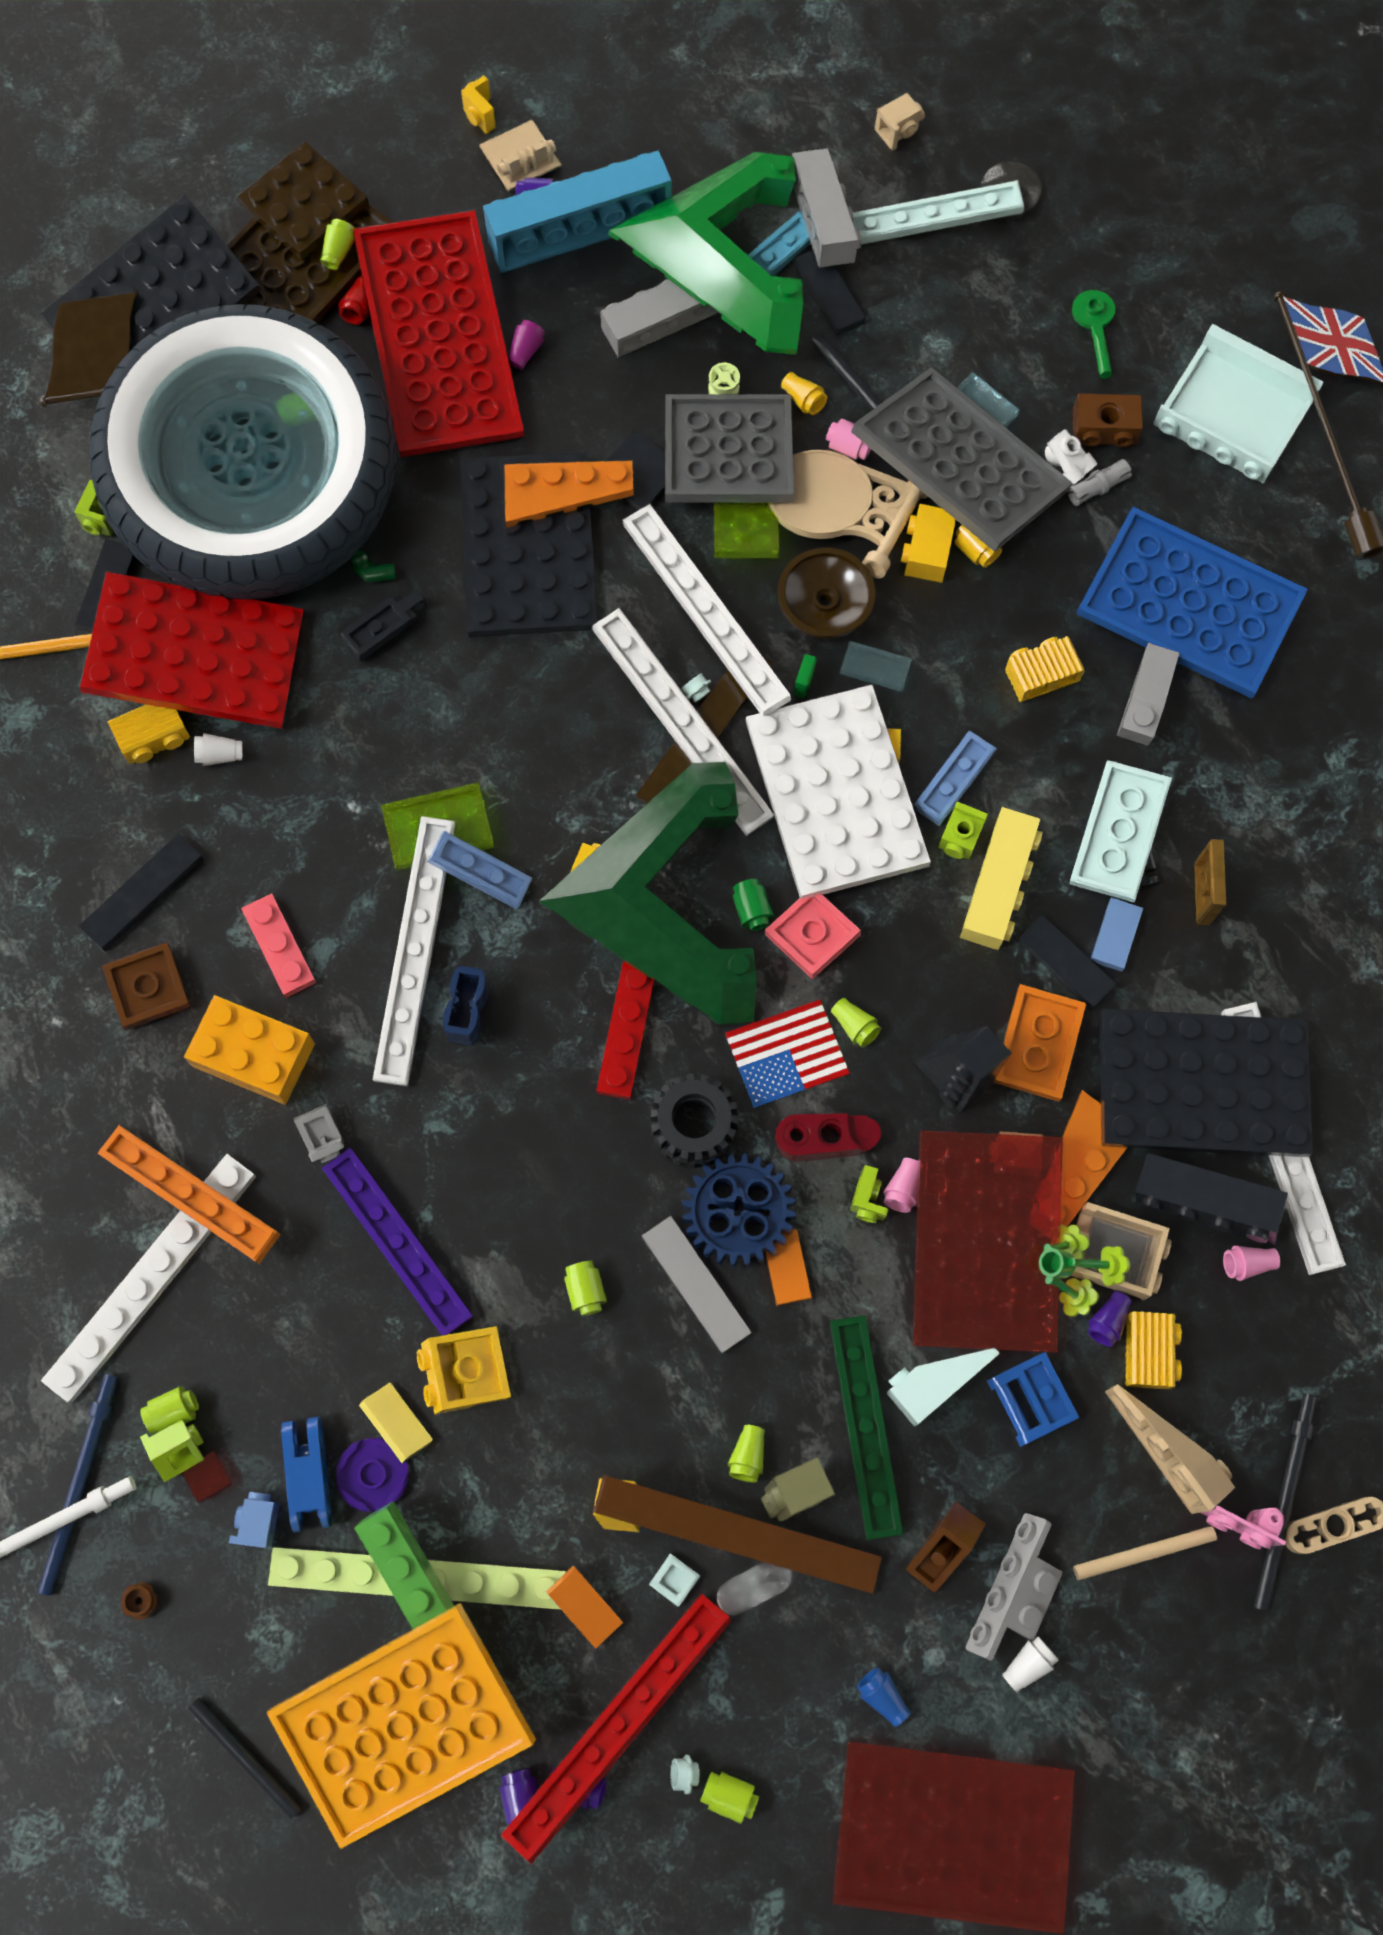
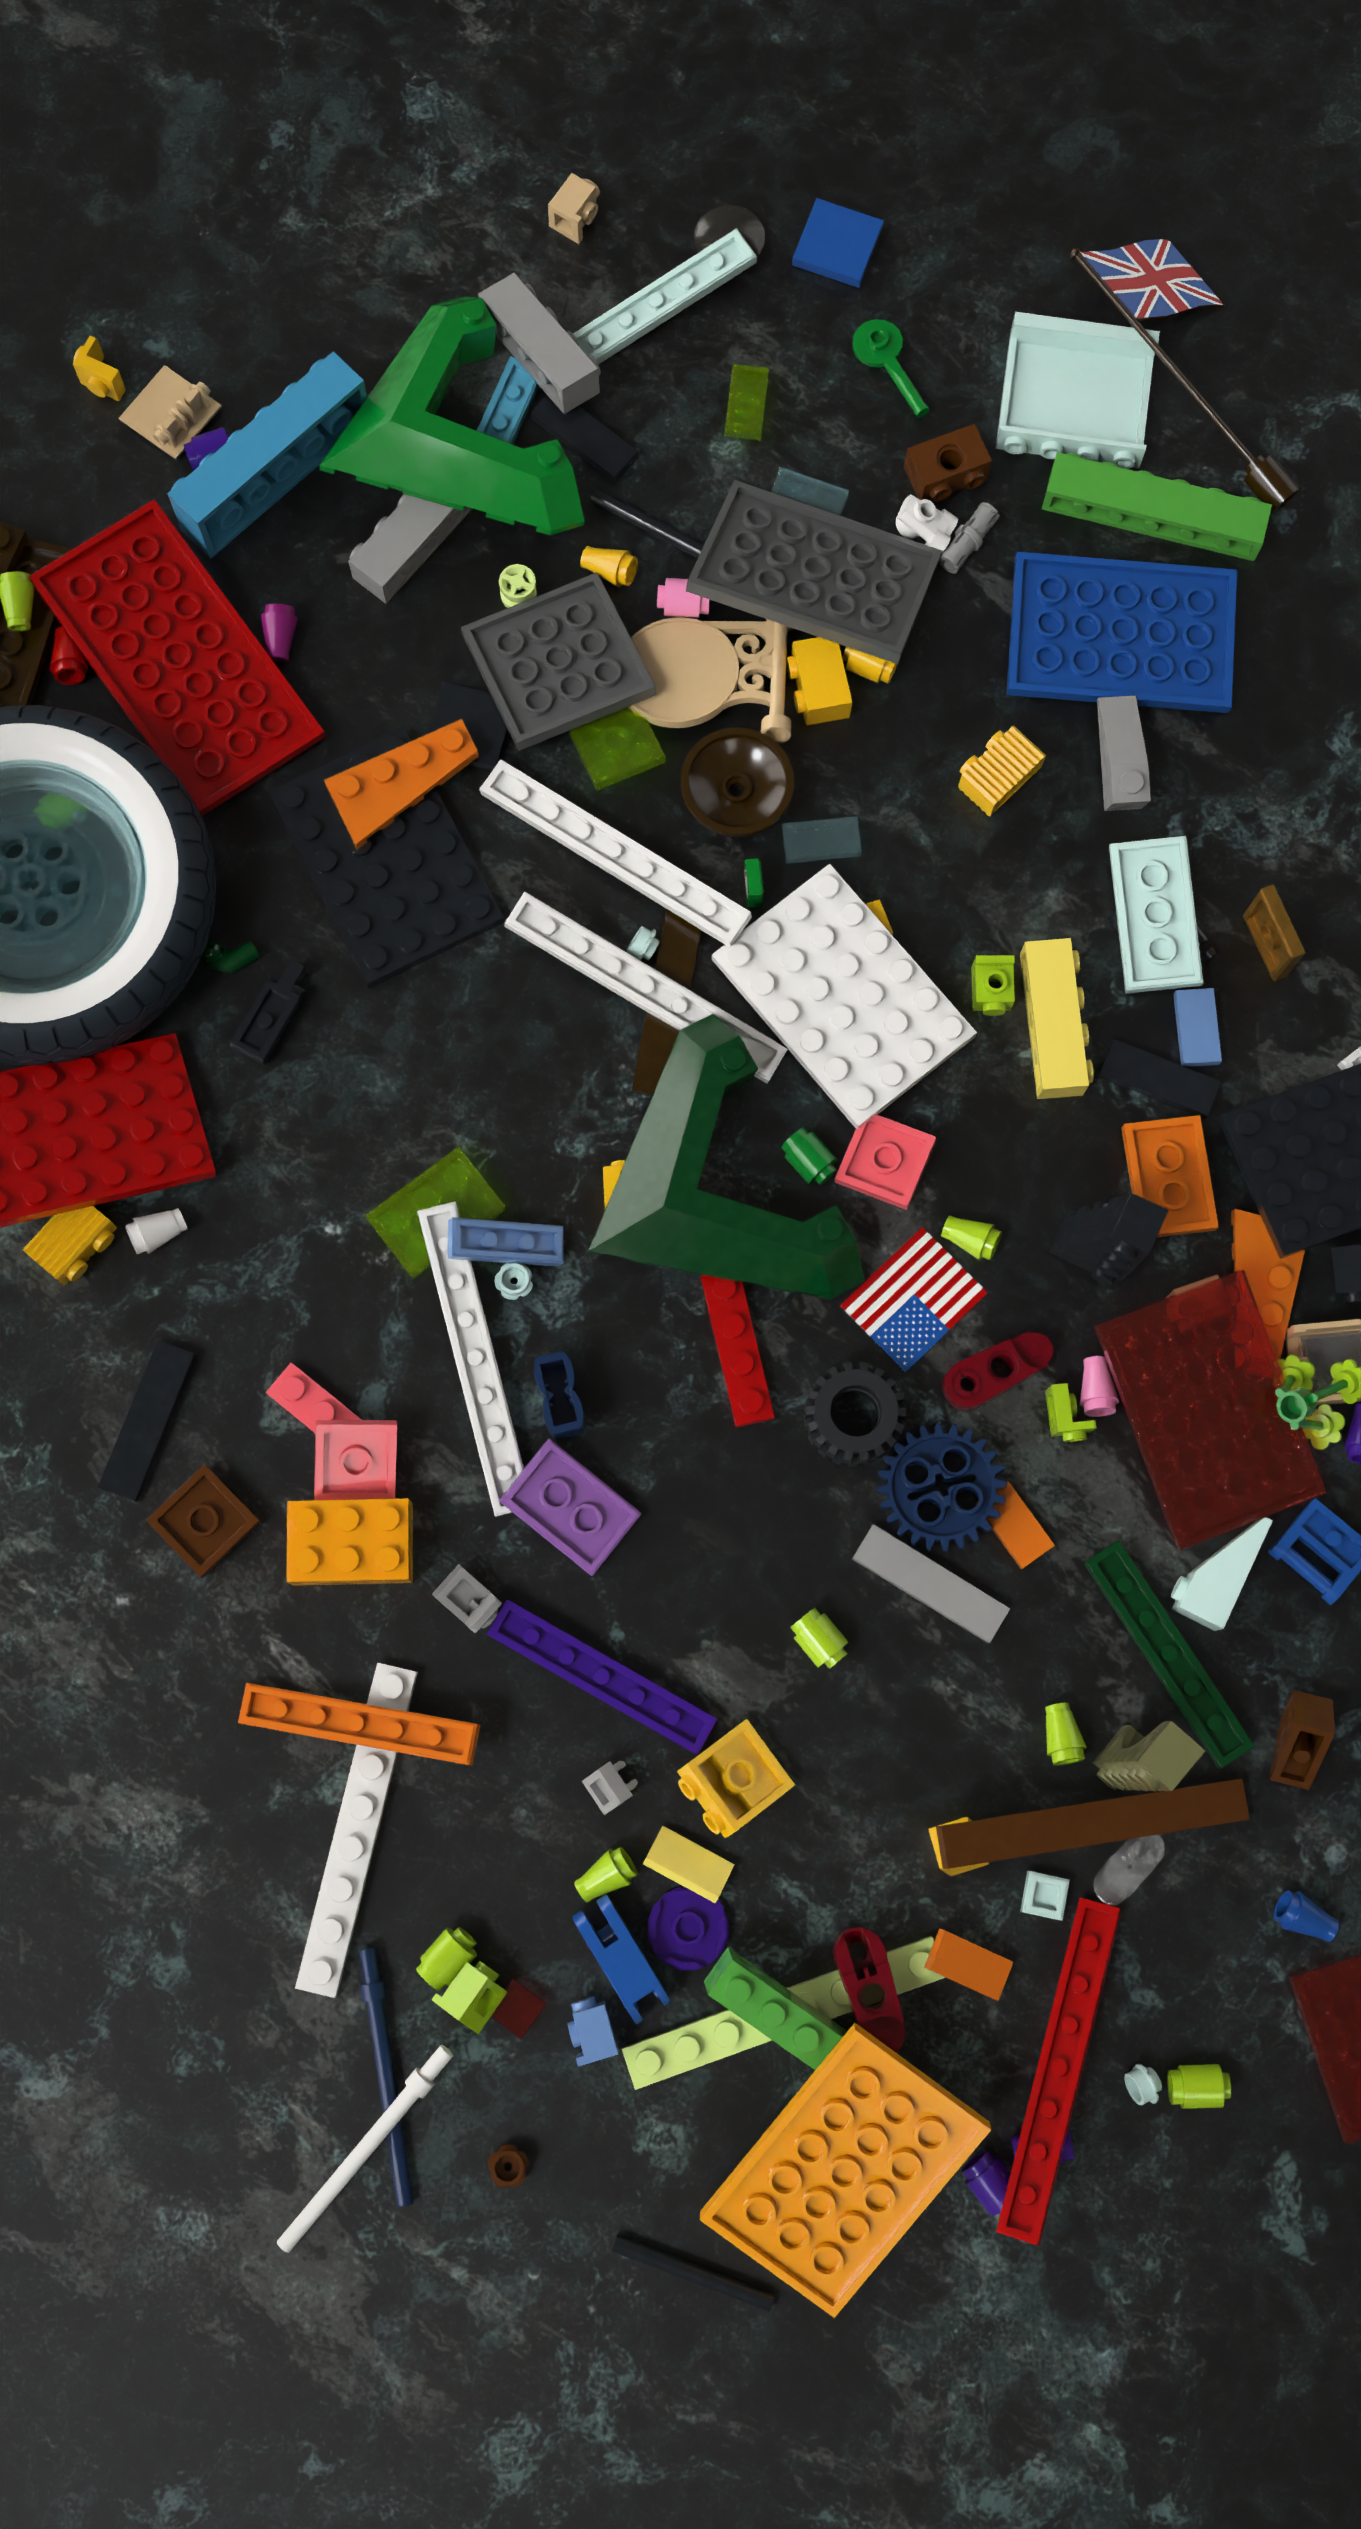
camera: 25 degrees left, 5 degrees up
(283, 986) = (355, 1459): none -> coral plate
(329, 1401) = (608, 1874): none -> lime cone
(360, 1331) = (608, 1787): none -> light grey tile
(434, 1097) = (570, 1507): none -> medium lavender tile
(470, 896) = (510, 1271): none -> light aqua plate
(492, 1619) = (885, 2018): none -> dark red piece
(954, 778) = (958, 929): medium blue tile -> none
(968, 313) = (746, 402): none -> clear neon green plate
(1095, 223) = (837, 242): none -> blue tile
(1263, 515) = (1156, 506): none -> bright green brick

